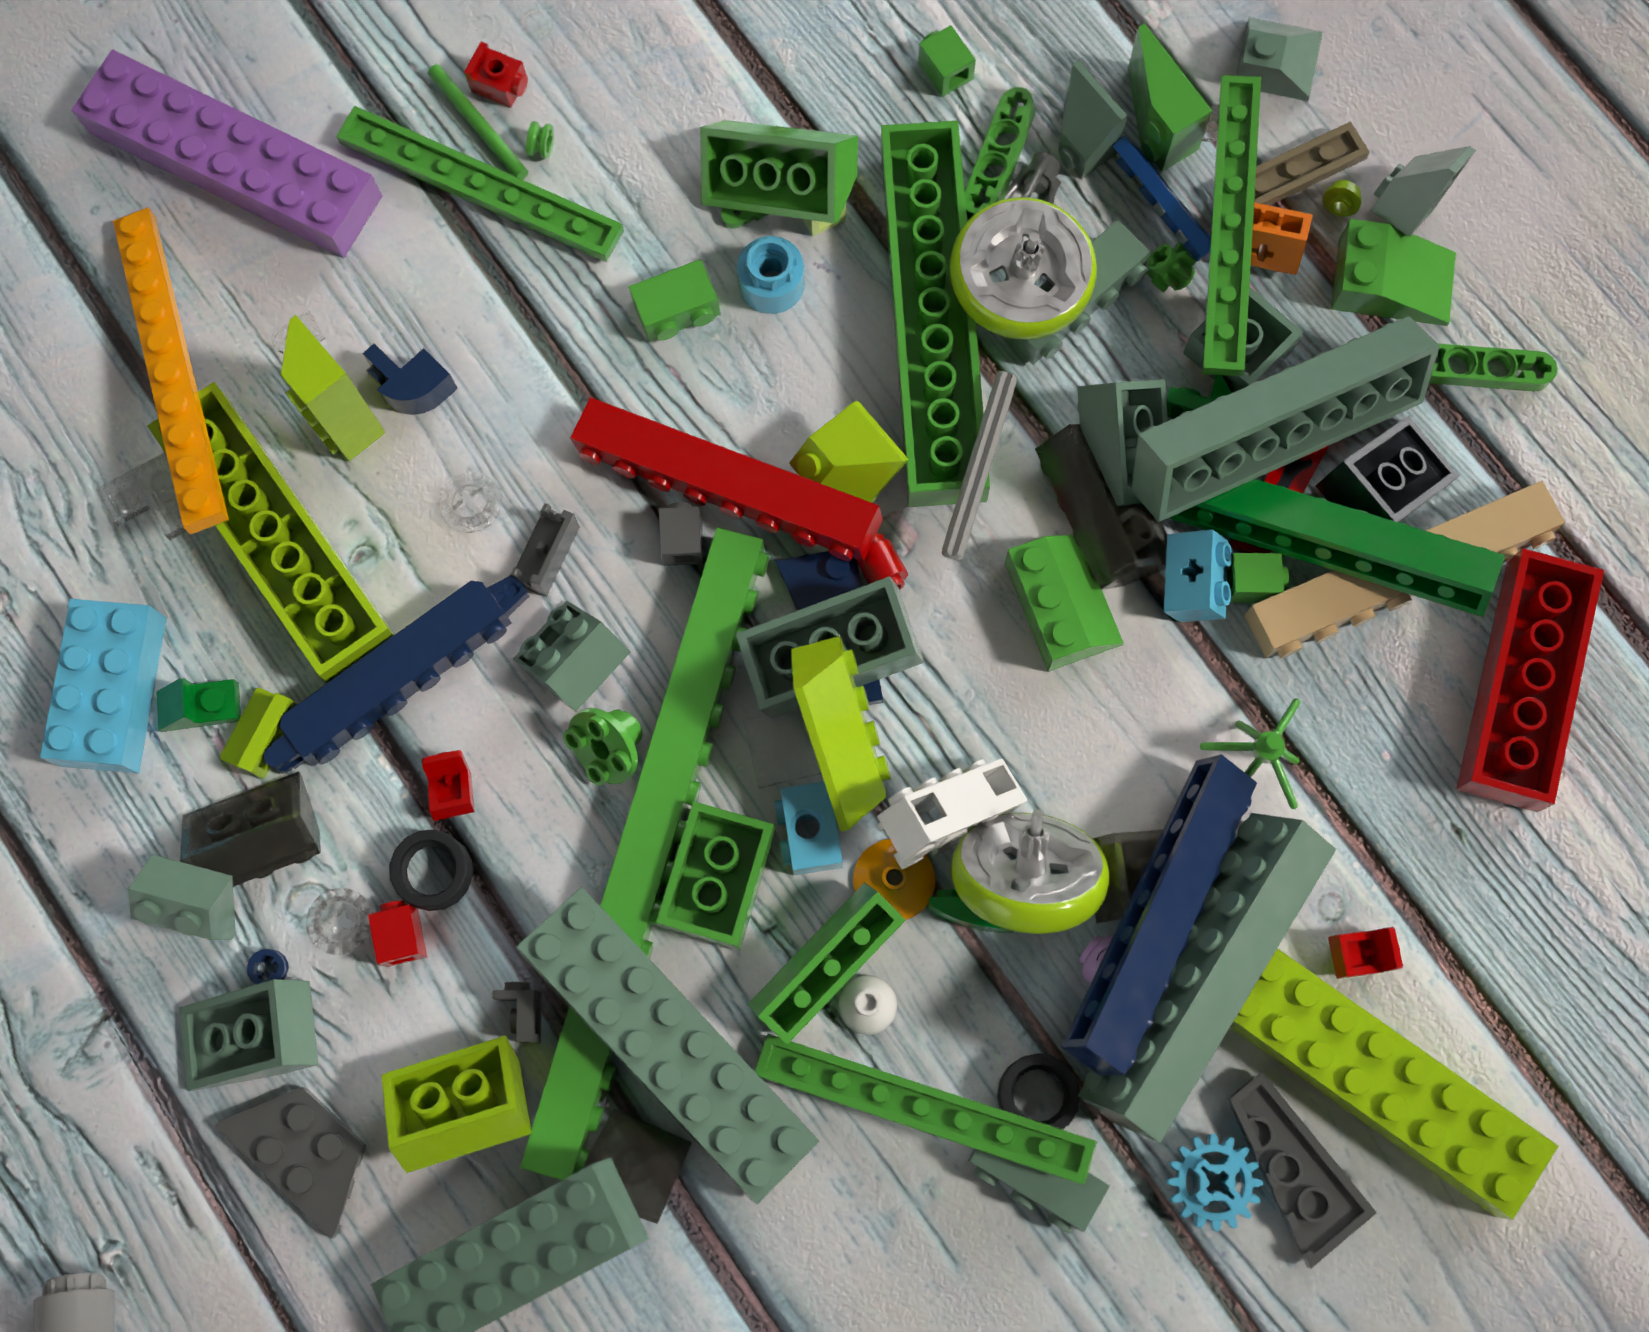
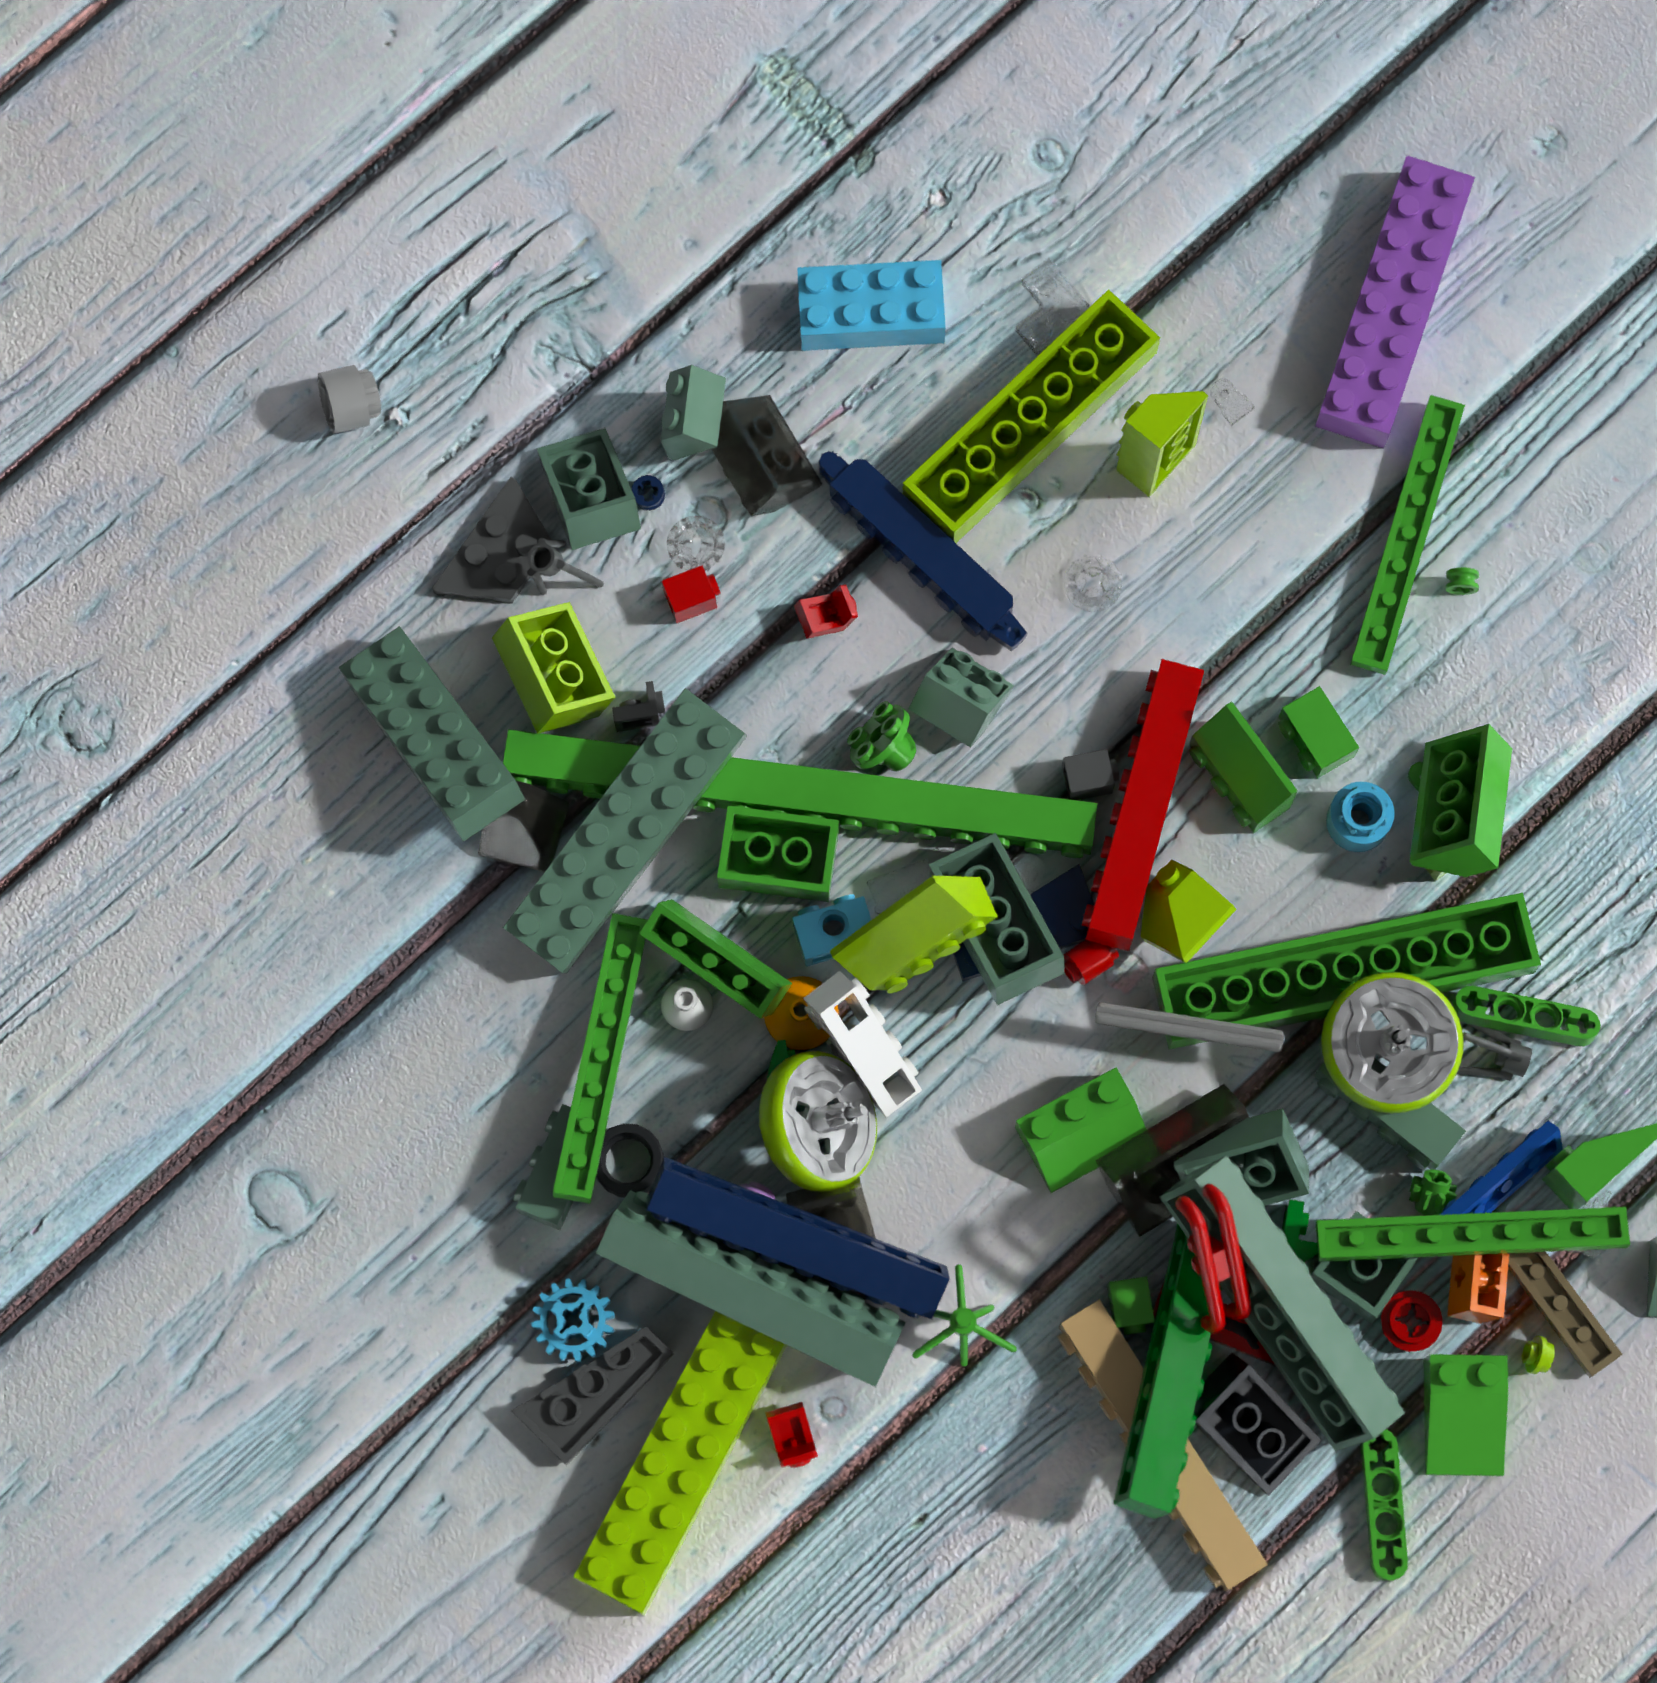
camera: 80 degrees right, 0 degrees up
(170, 373) = (1167, 296): light orange plate -> none
(197, 705) = (868, 387): green slope -> none
(256, 731) = (852, 441): lime panel -> none
(329, 1091) = (548, 561): none -> dark grey plant
(408, 848) = (743, 585): black tyre -> none
(415, 387) = (1190, 511): dark blue brick -> none
(477, 122) = (1473, 521): bright green bar -> none
(496, 75) = (1524, 515): red brick -> none
(546, 550) = (1055, 658): dark grey hinge -> none
(703, 375) = (1242, 768): none -> bright green slope
(946, 60) = (1617, 950): bright green brick -> none
(1089, 123) = (1564, 1090): sand green slope -> none
(1197, 576) = (1121, 1247): medium azure brick -> none
(1247, 465) = (1217, 1260): none -> red piece
(1310, 304) = (1425, 1310): none -> red gear
(1417, 188) = (1551, 1420): sand green slope -> none
(1530, 680) = (1070, 1567): red brick -> none

